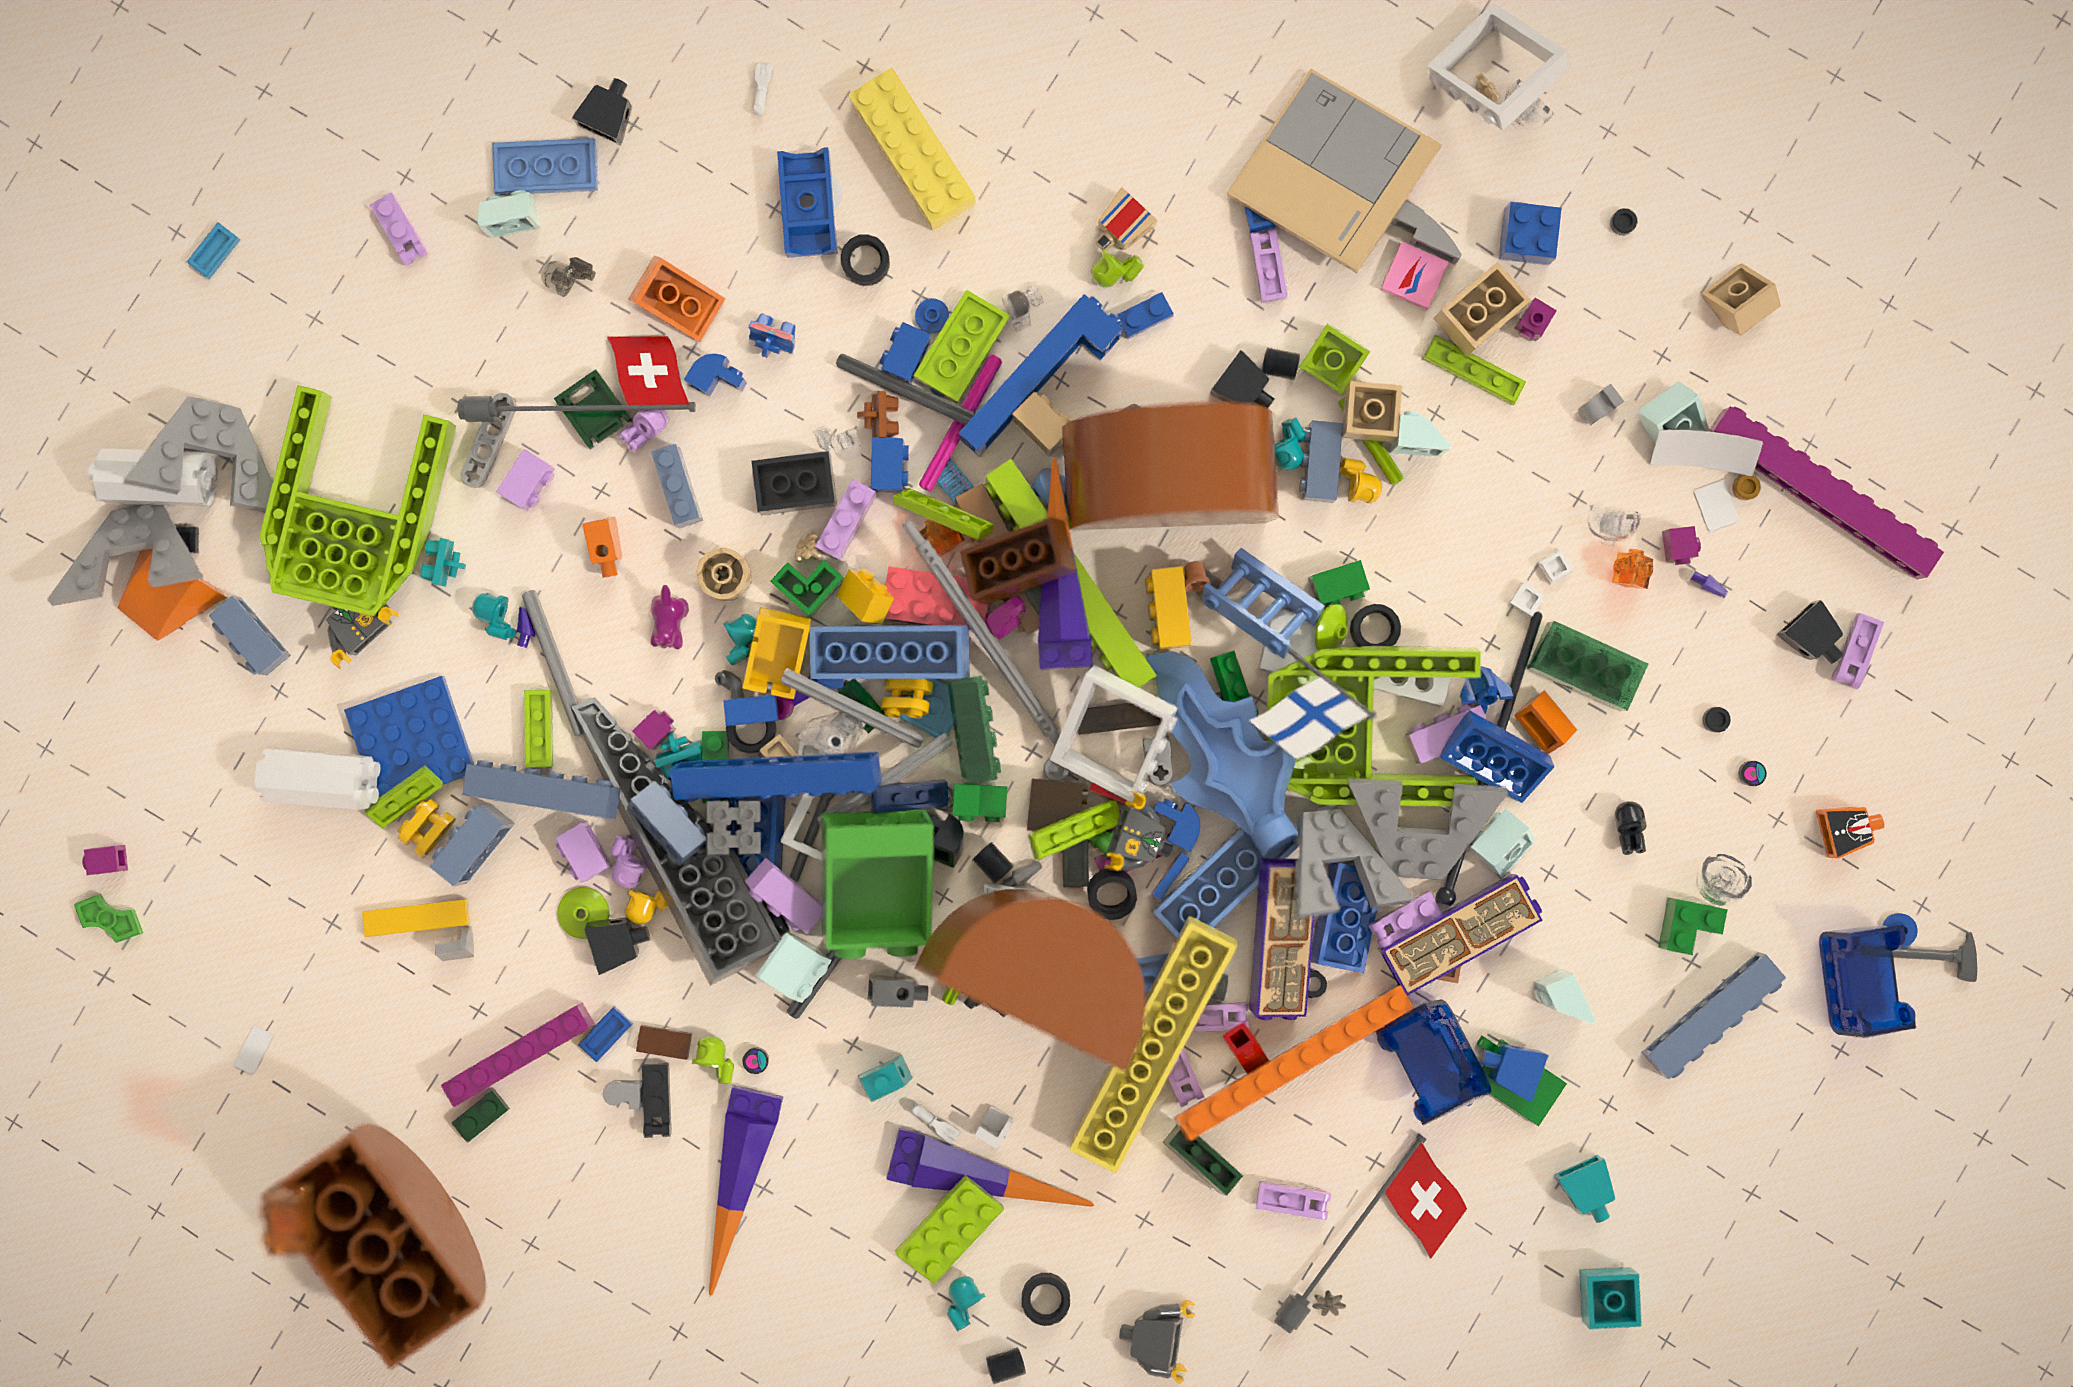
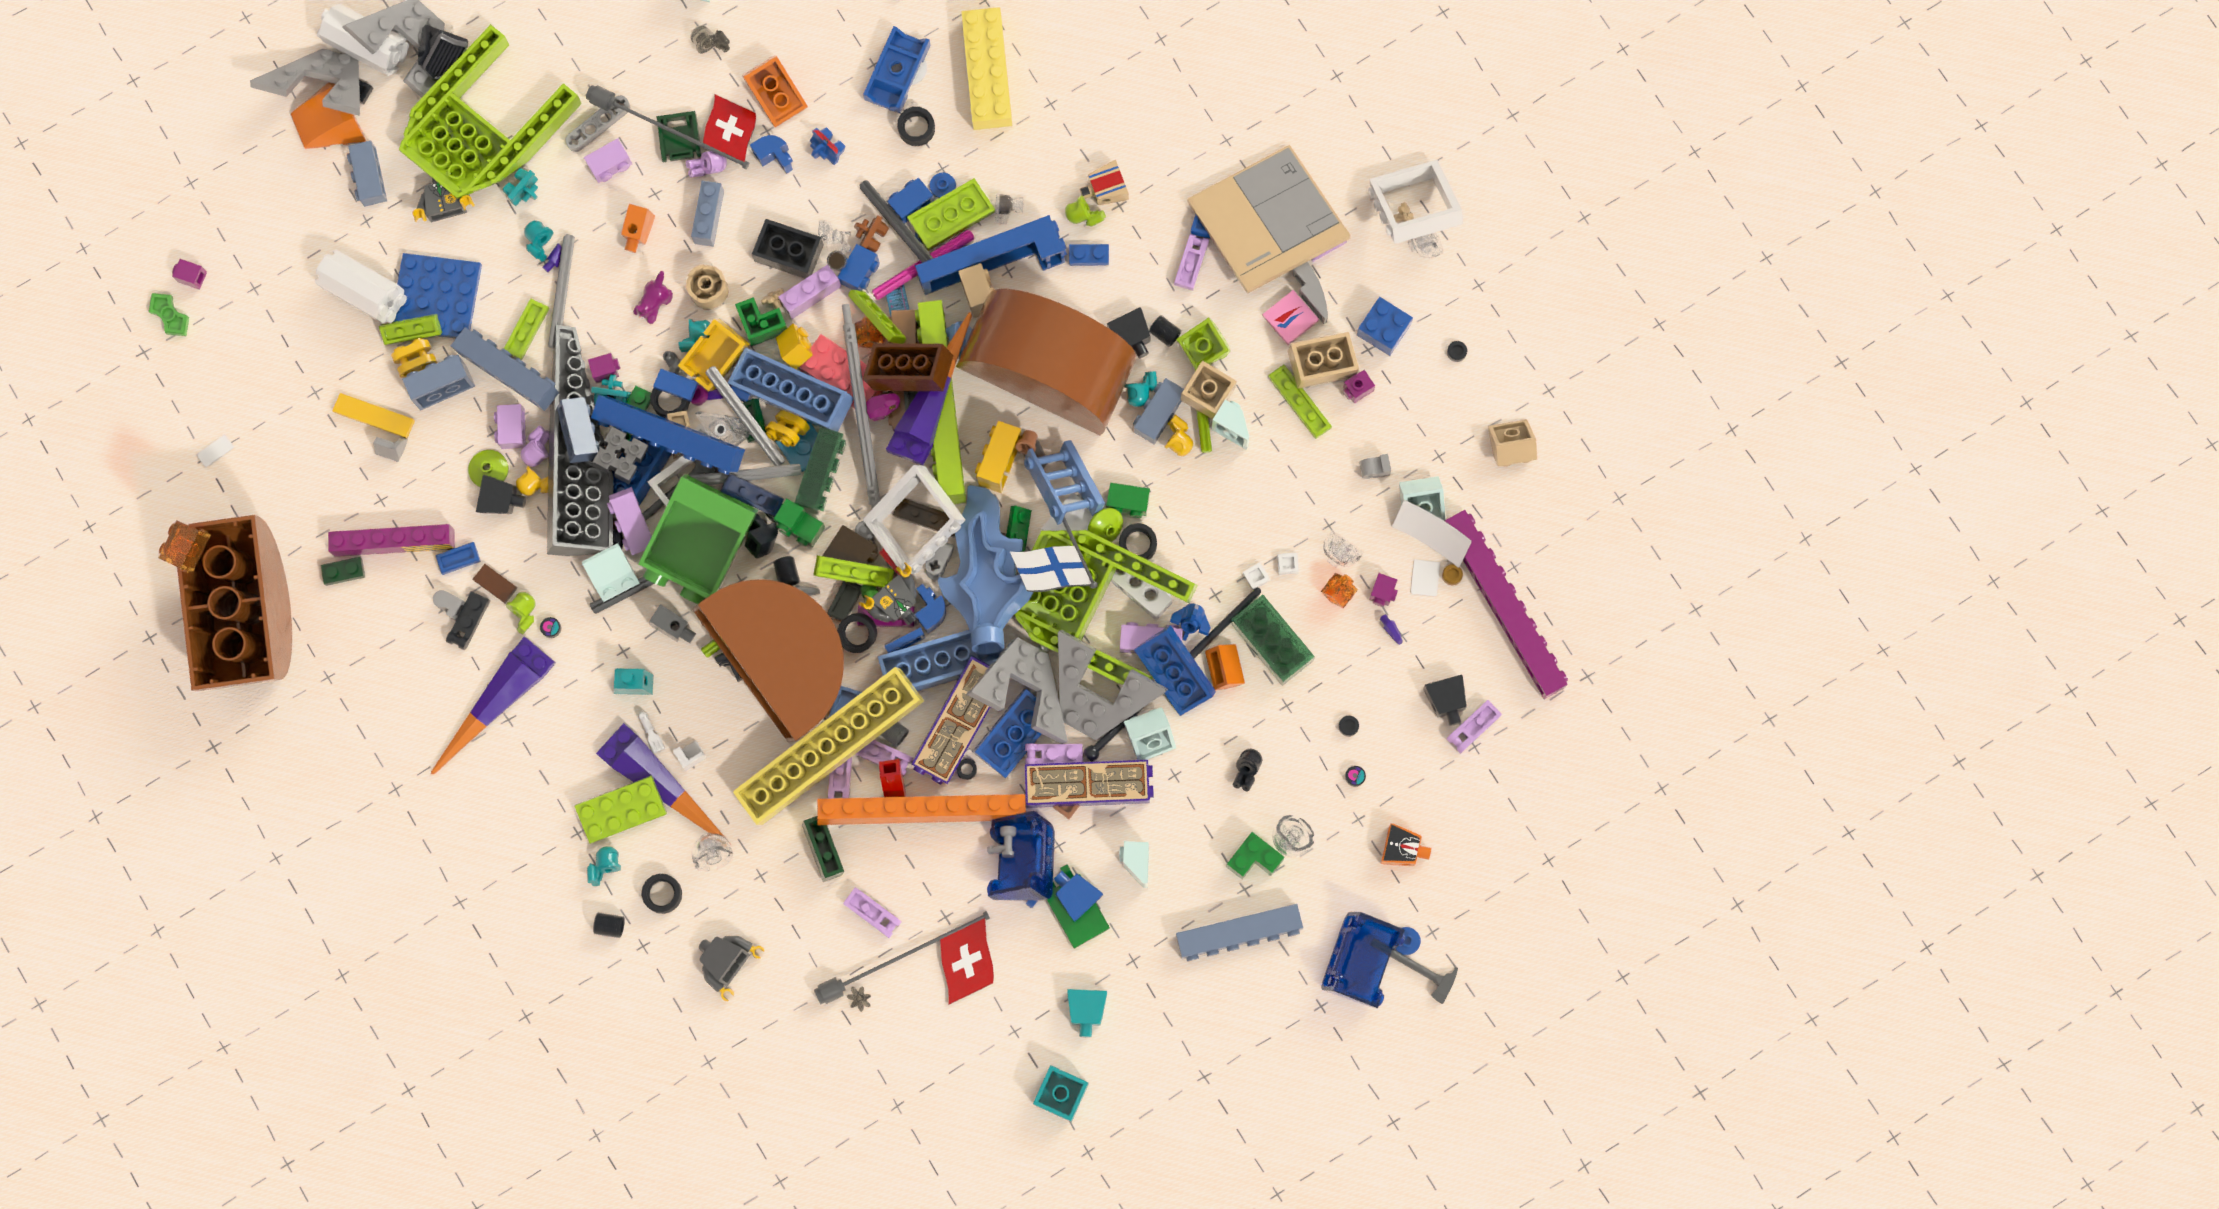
camera: 35 degrees right, 10 degrees down
(254, 447) = (439, 51): none -> black piece
(862, 468) = (837, 259): none -> piece
(1077, 1224) = (710, 851): none -> clear cylinder
(1408, 1054) = (1006, 849): none -> light grey piece

